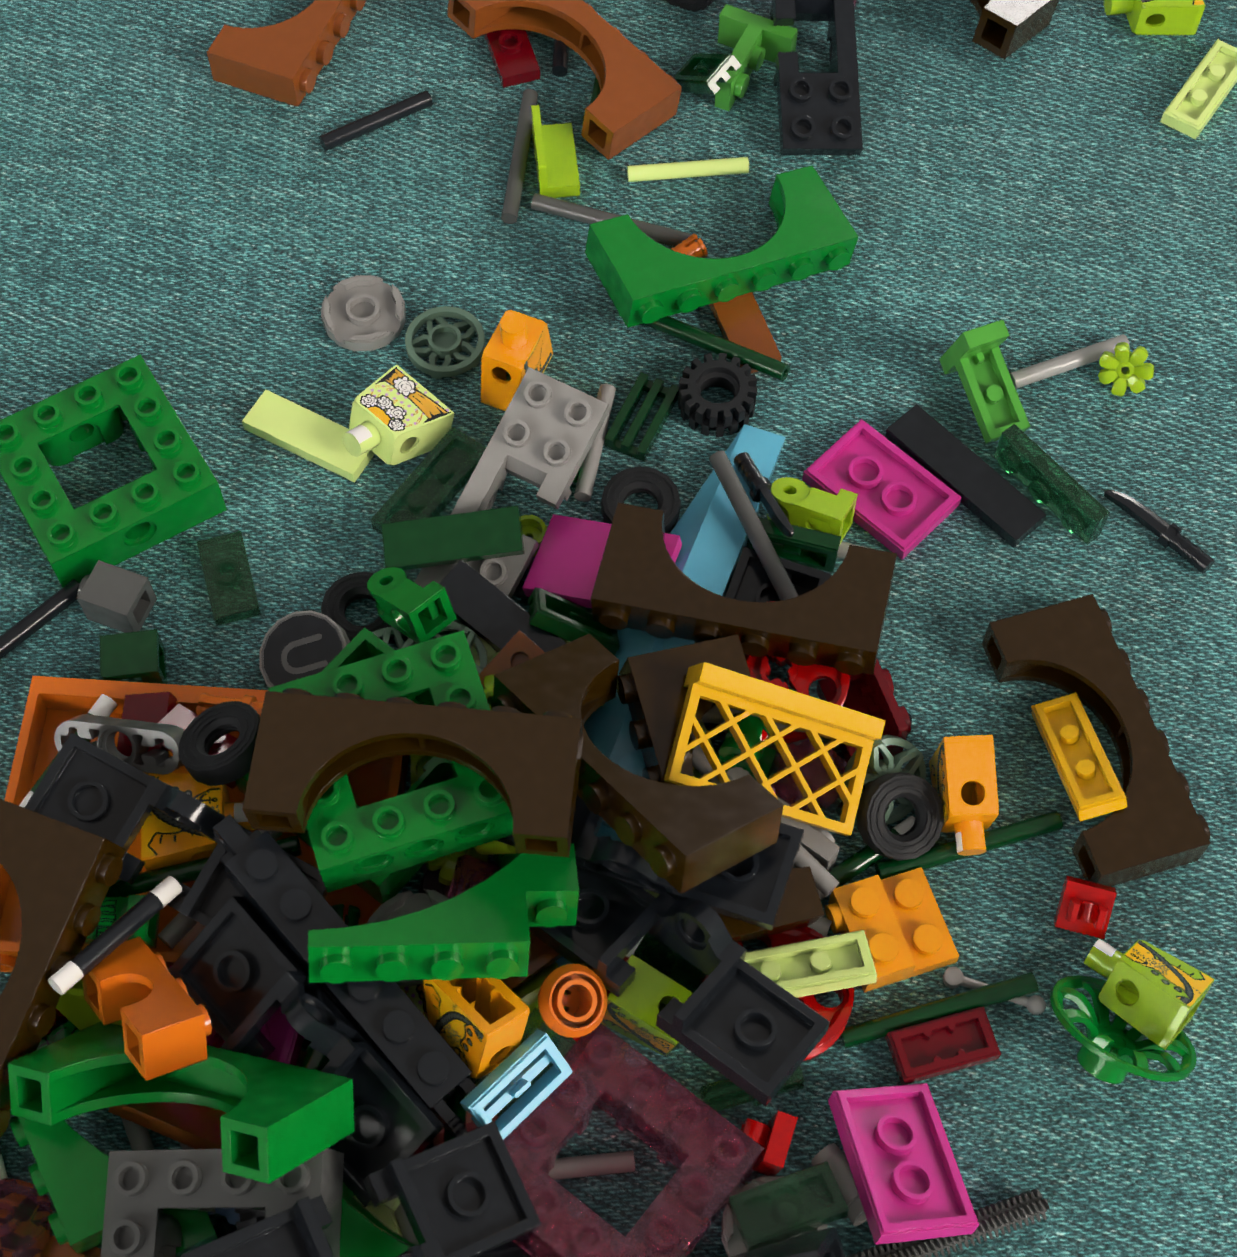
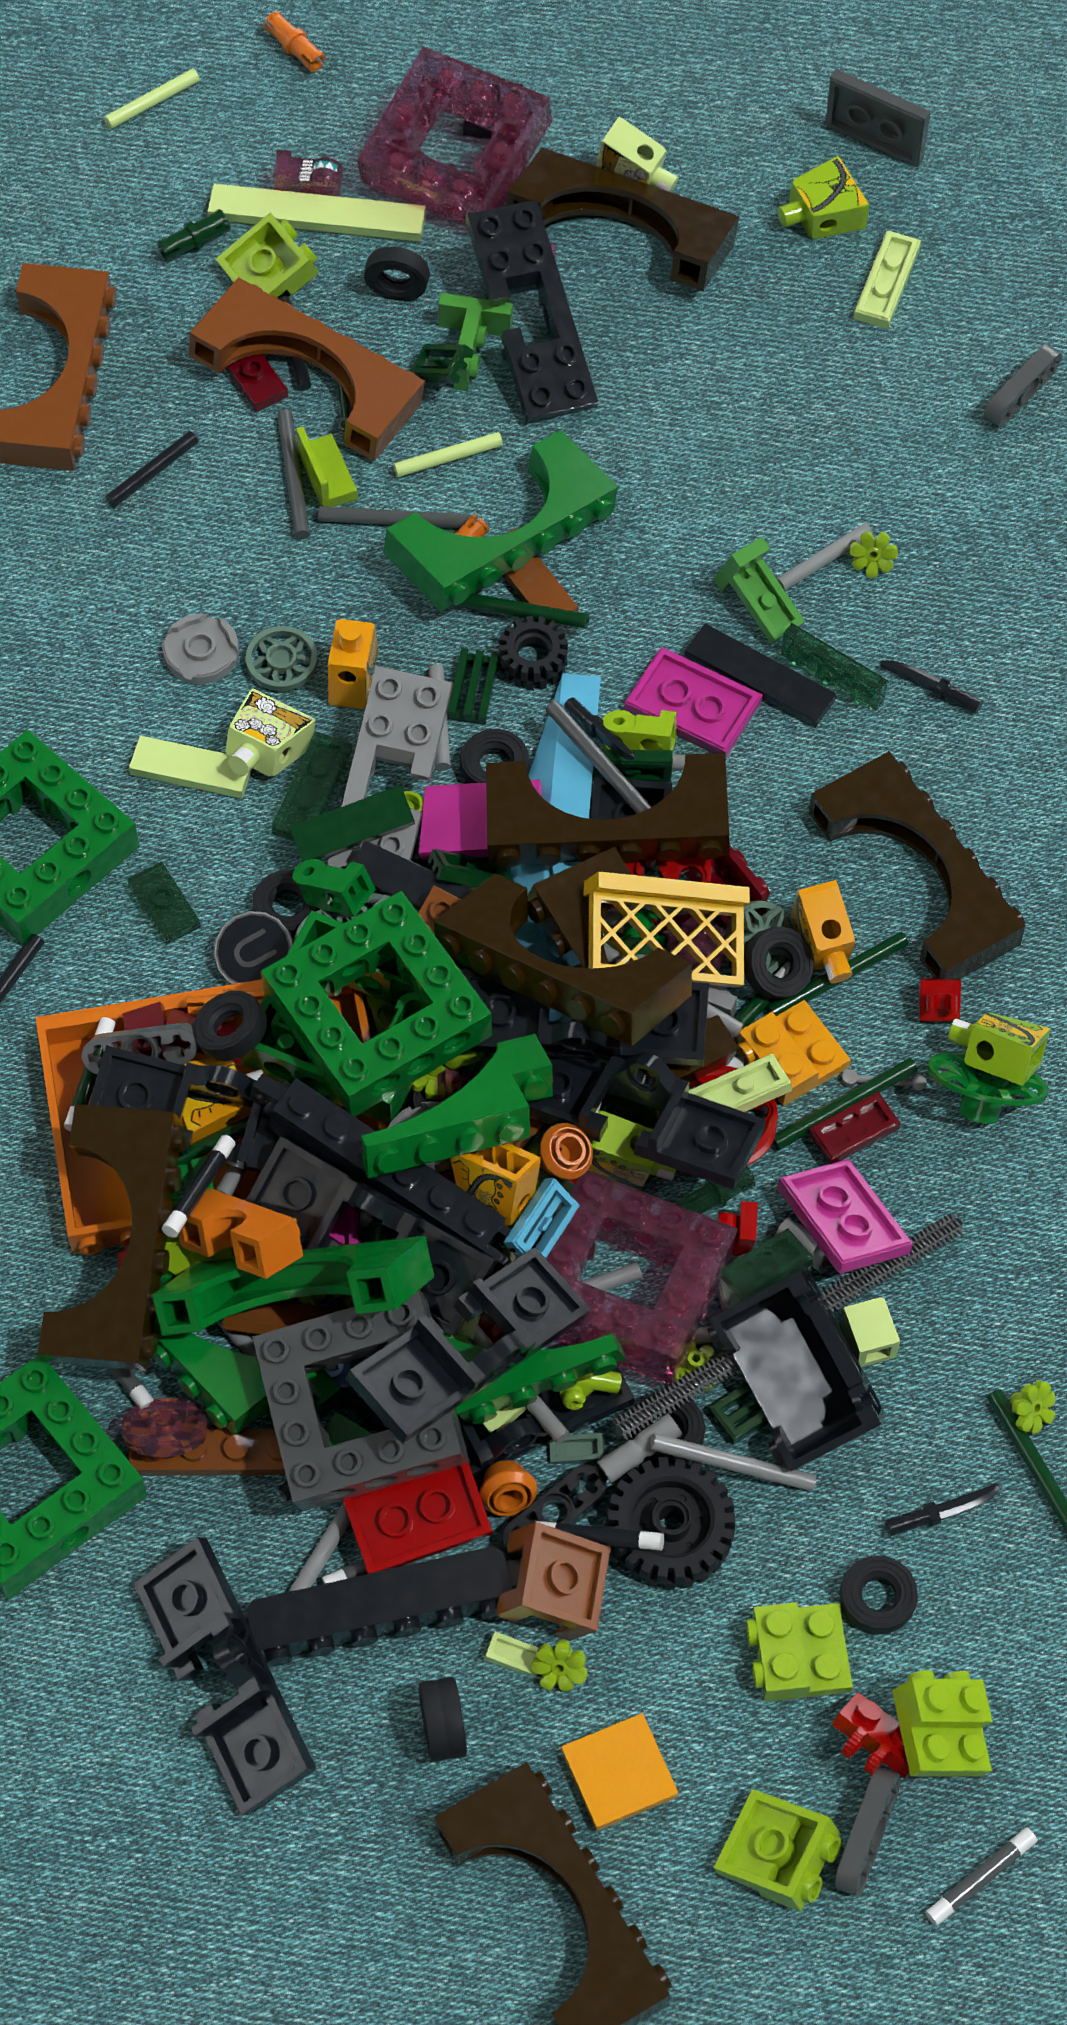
camera: 15 degrees left, 0 degrees up
(116, 597) = (76, 940): dark grey brick -> none
(133, 656) = (110, 983): dark green panel -> none
(316, 740) = (482, 971): dark brown arch -> none
(1078, 757) = (907, 883): yellow tile -> none

